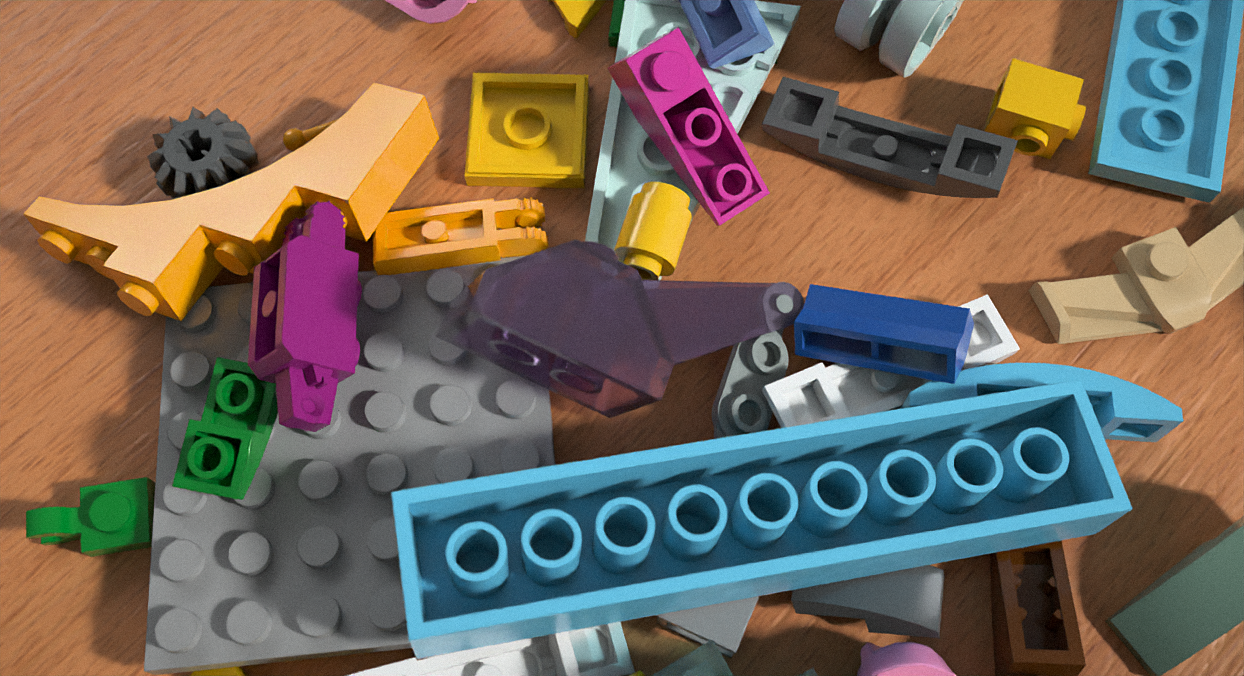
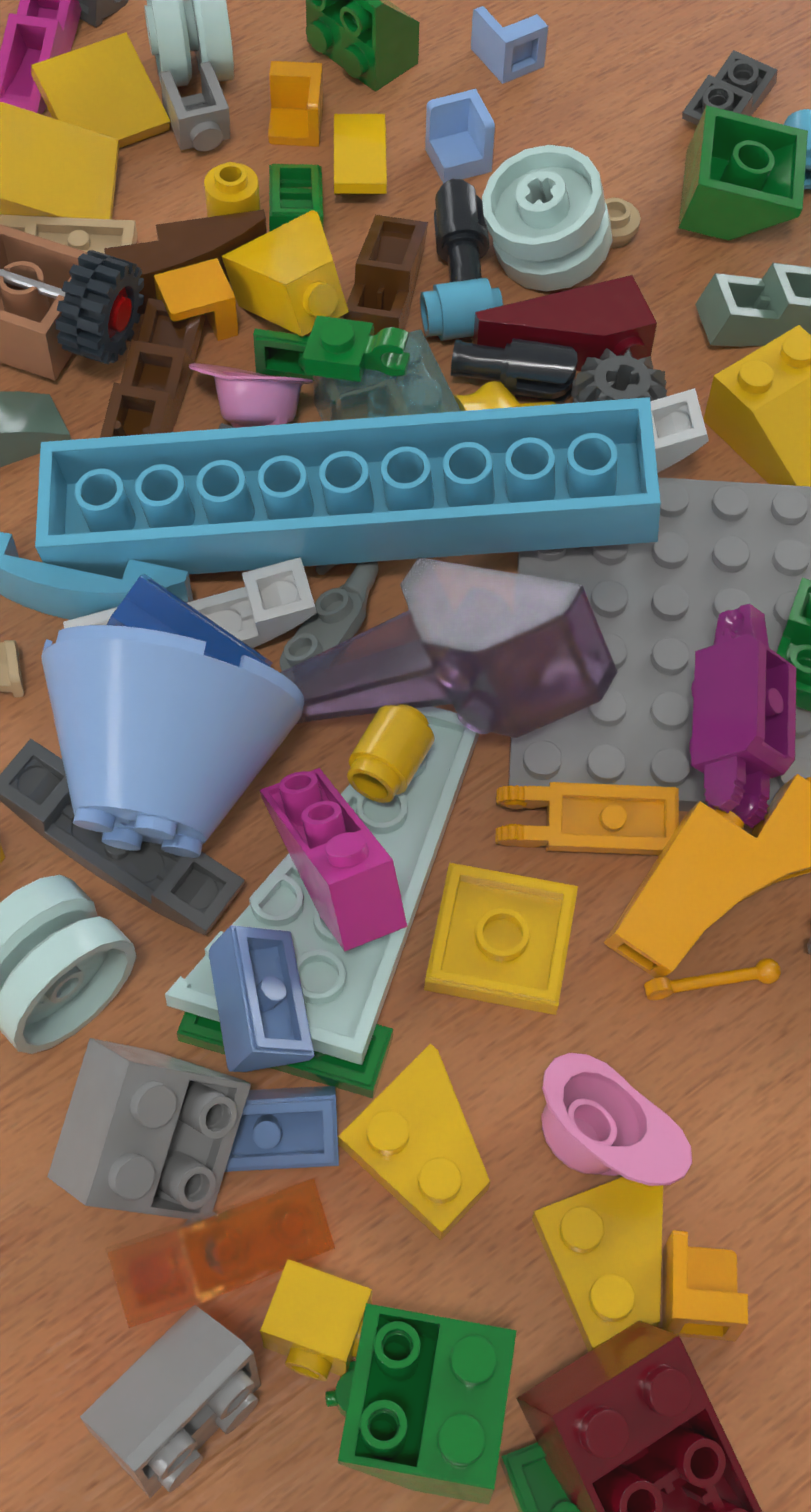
camera: 175 degrees left, 10 degrees down
(880, 188) = (160, 732): none -> light blue cone

